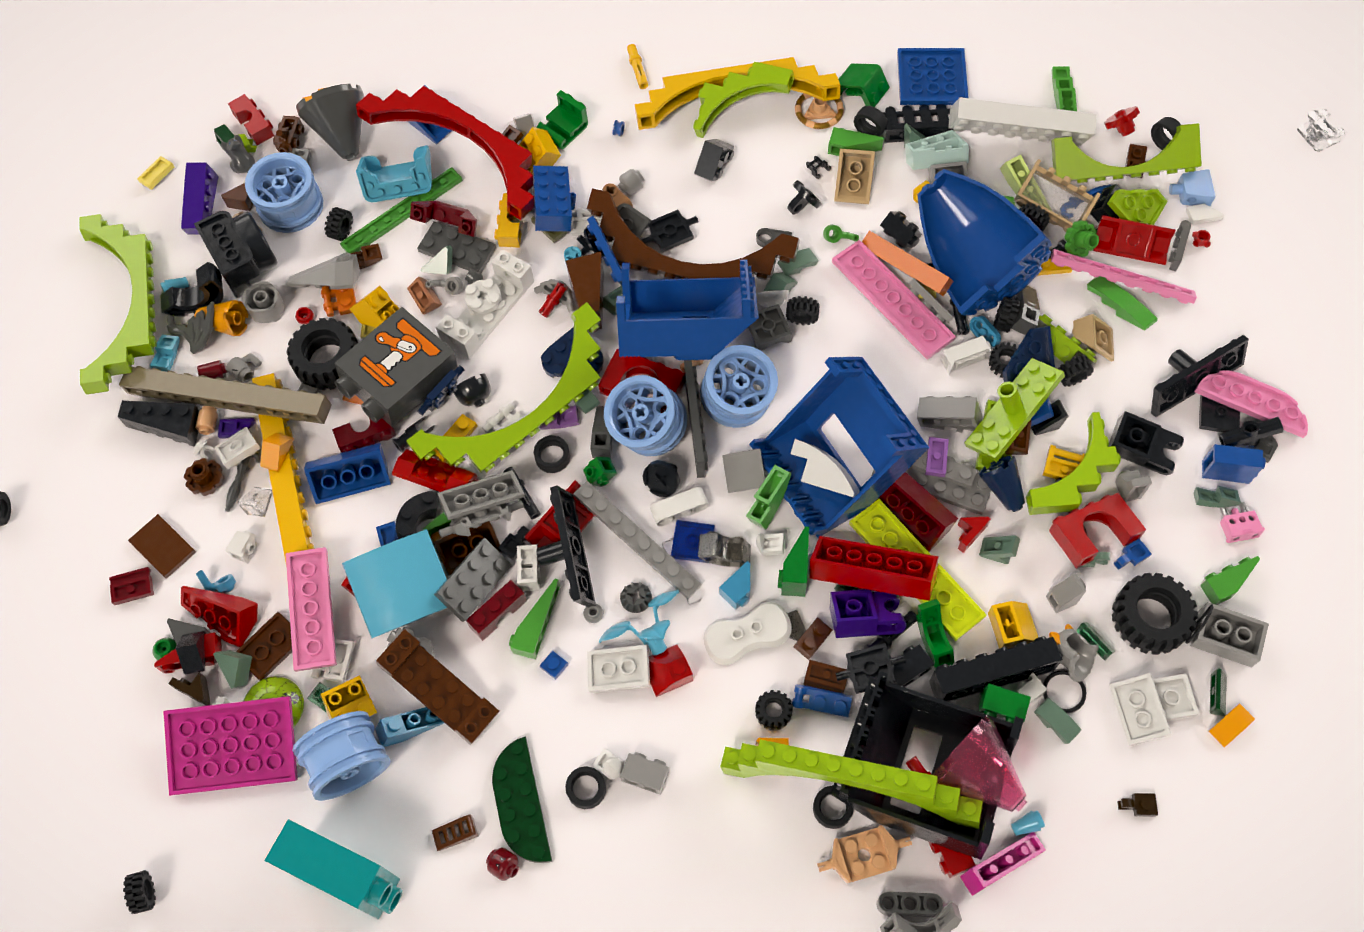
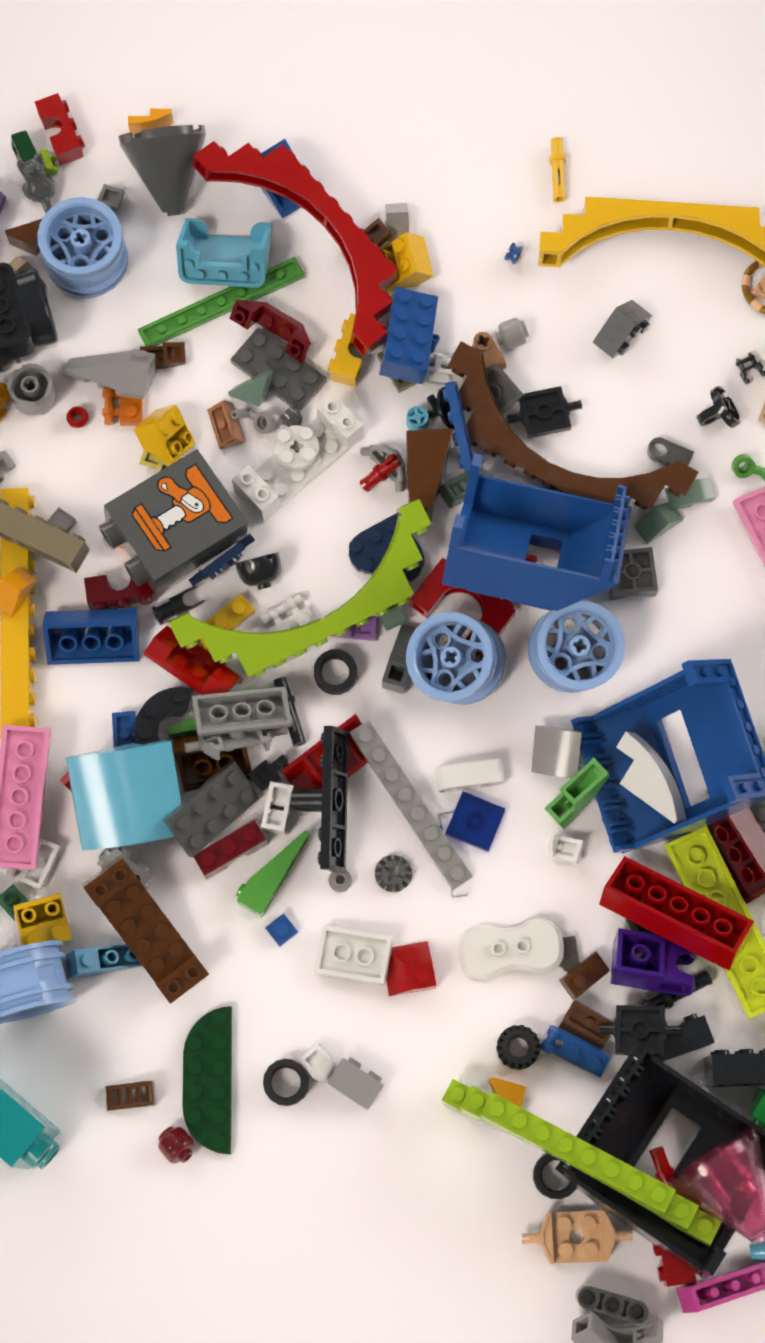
camera: 10 degrees right, 10 degrees up
(288, 134) = (97, 169): reddish brown brick -> none
(311, 338) = (83, 451): black tyre -> none
(338, 224) = (141, 305): black tyre -> none
(565, 120) = (448, 227): green piece -> none
(600, 471) = (386, 710): green brick -> none
(654, 634) = (404, 930): medium azure plant -> none
(661, 478) = (458, 736): black tile -> none
(696, 419) = (514, 679): dark grey plate -> none
(723, 550) = (509, 844): clear smoke brick -> none
(737, 587) = (514, 892): dark azure slope -> none
(760, 79) = (708, 234): lime arch -> none
(772, 298) = (646, 536): white tile -> none
(793, 577) = (584, 892): green slope -> none
(802, 310) = (679, 562): black tyre -> none
(933, 633) = (724, 1009): green arch -> none

